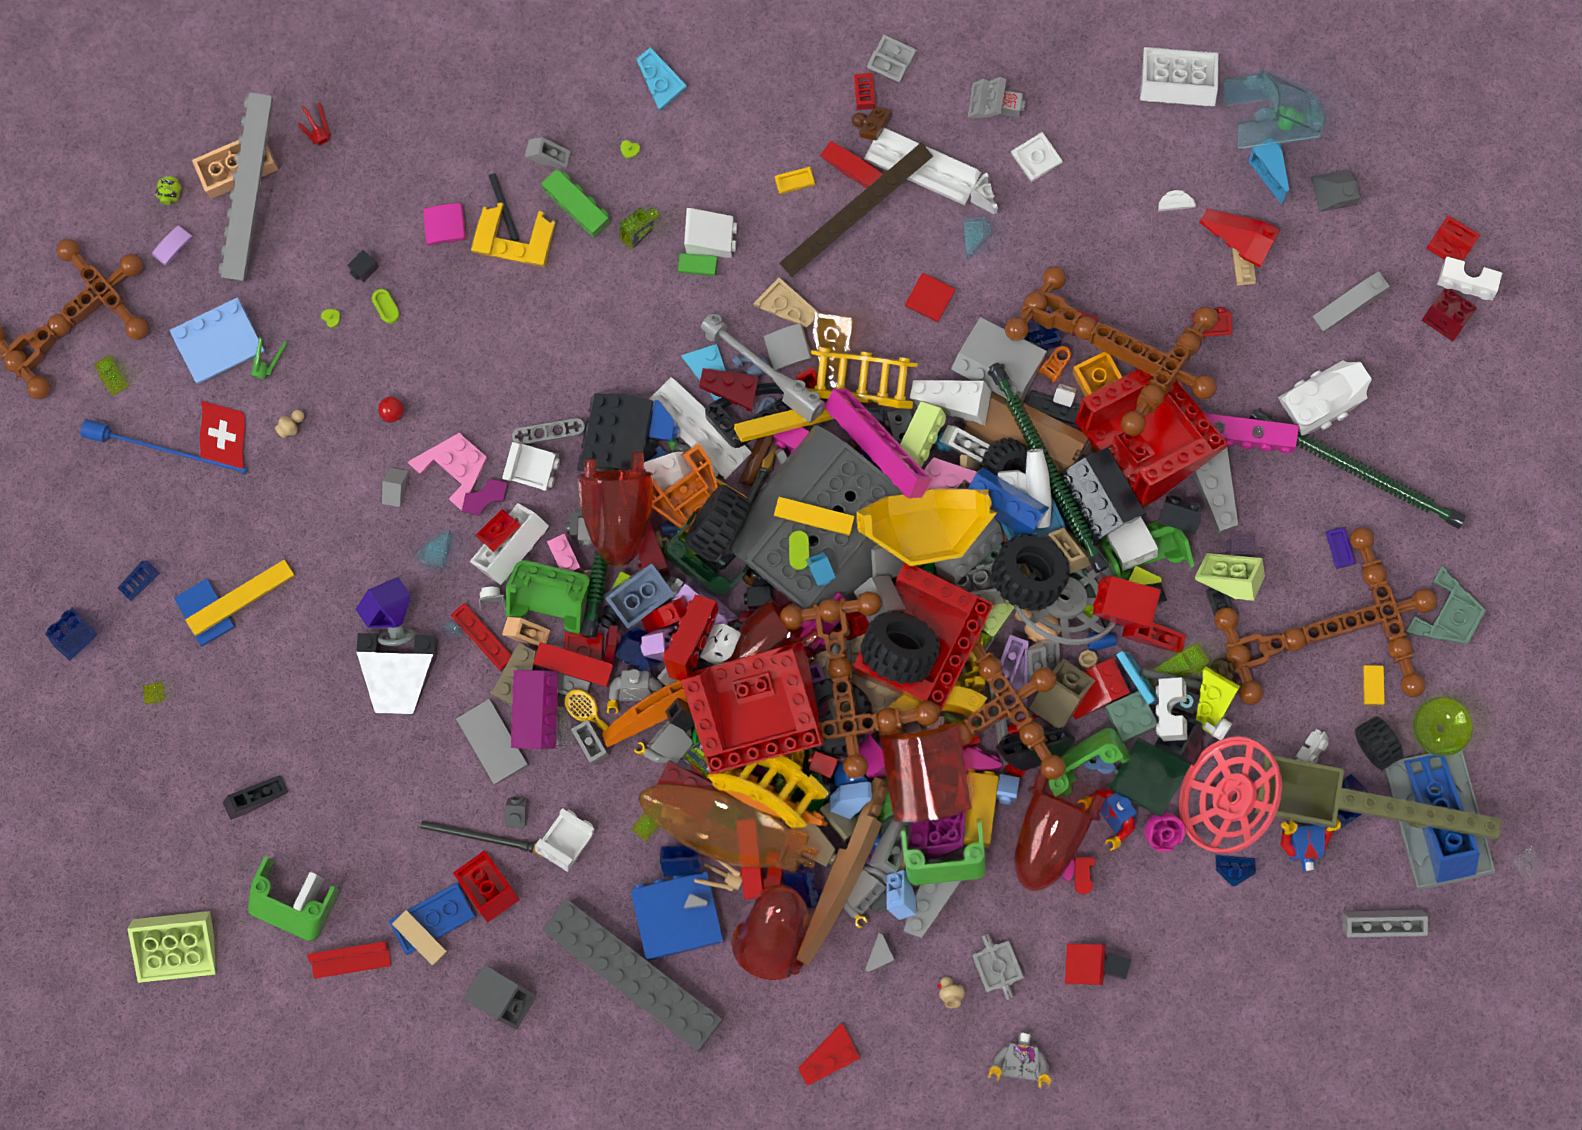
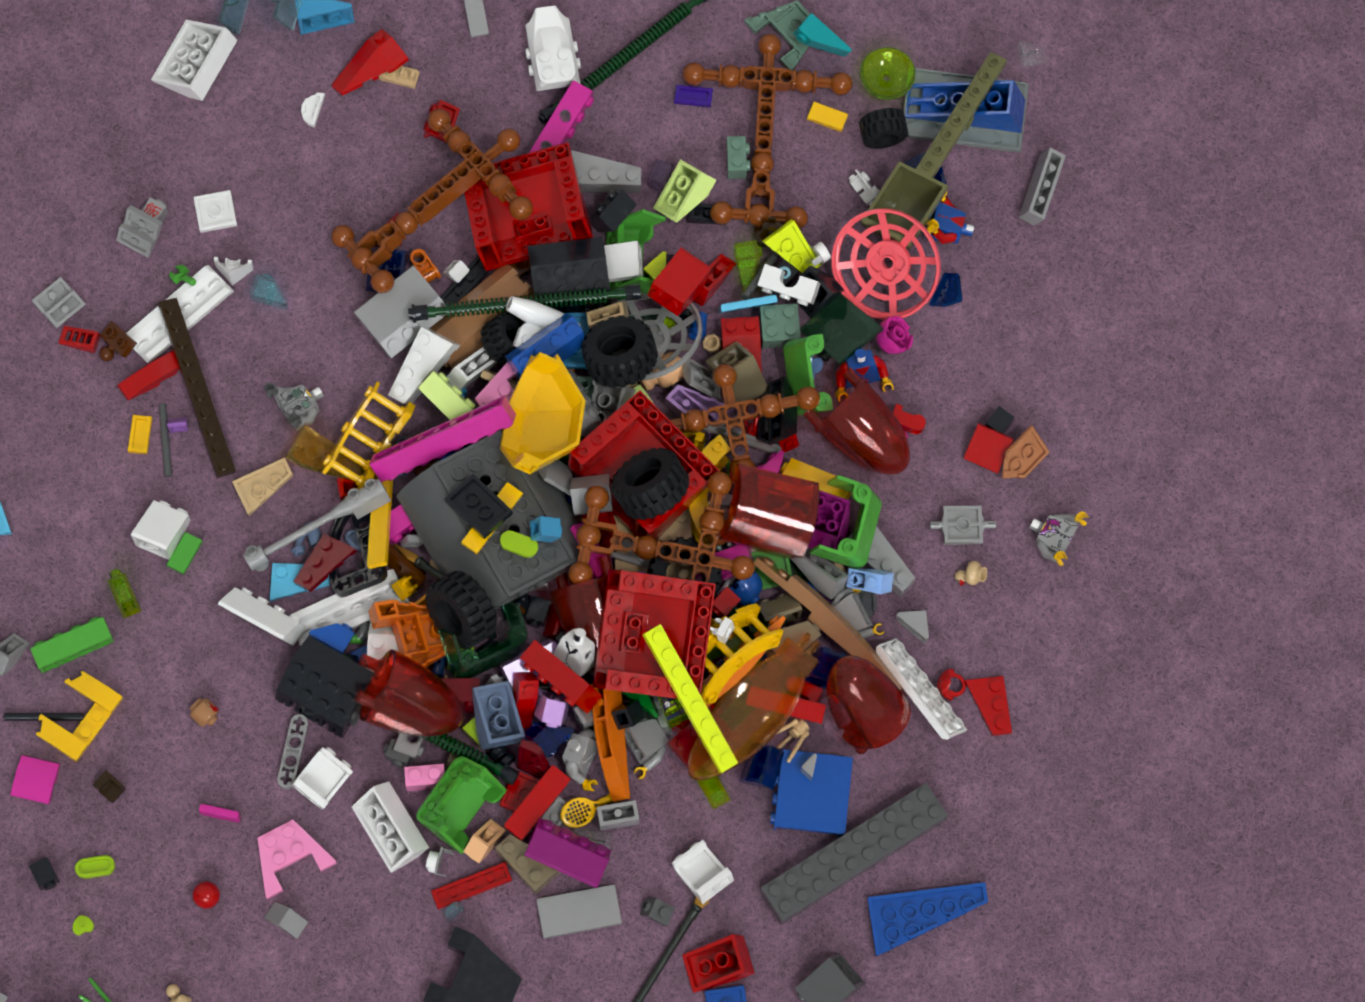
camera: 85 degrees left, 5 degrees down
(386, 608) = (413, 961): dark purple piece -> none
(435, 551) = (369, 900): clear light blue slope -> none
(460, 288) = (109, 786): none -> dark brown panel
(469, 391) = (220, 813): none -> dark pink tile
(477, 501) = (335, 844): magenta tile -> none
(497, 530) = (373, 831): red tile -> none
(555, 340) = (204, 712): none -> medium nougat head
(593, 1048) = (911, 914): none -> blue wing
(629, 149) = (38, 576): lime piece -> none
(659, 353) = (262, 615): none -> white slope
(706, 763) = (690, 698): none -> neon yellow plate
(735, 468) = (404, 588): none -> yellow tile
(782, 770) = (725, 629): none -> white tile
(787, 347) = (304, 498): light grey slope -> none
(797, 204) = (165, 440): none -> dark grey bar
(813, 982) = (920, 689): none -> white plate
(816, 208) = (178, 425): none -> medium lavender slope
(817, 498) = (478, 506): none -> black plate
(829, 1003) = (944, 682): none -> red piece
(850, 799) = (766, 589): light blue slope -> none
(874, 303) = (296, 403): none -> torso
(898, 423) = (424, 420): dark grey brick -> none
(930, 297) = (310, 354): red tile -> none
(959, 153) = (176, 278): none -> bright green bar
(1007, 789) = (806, 452): light blue slope -> none
(1091, 1002) = (1024, 454): none -> nougat tile
(1096, 373) = (453, 235): light orange brick -> none
(1290, 612) = (736, 157): none -> sand green brick
(1453, 641) = (819, 36): none -> teal slope

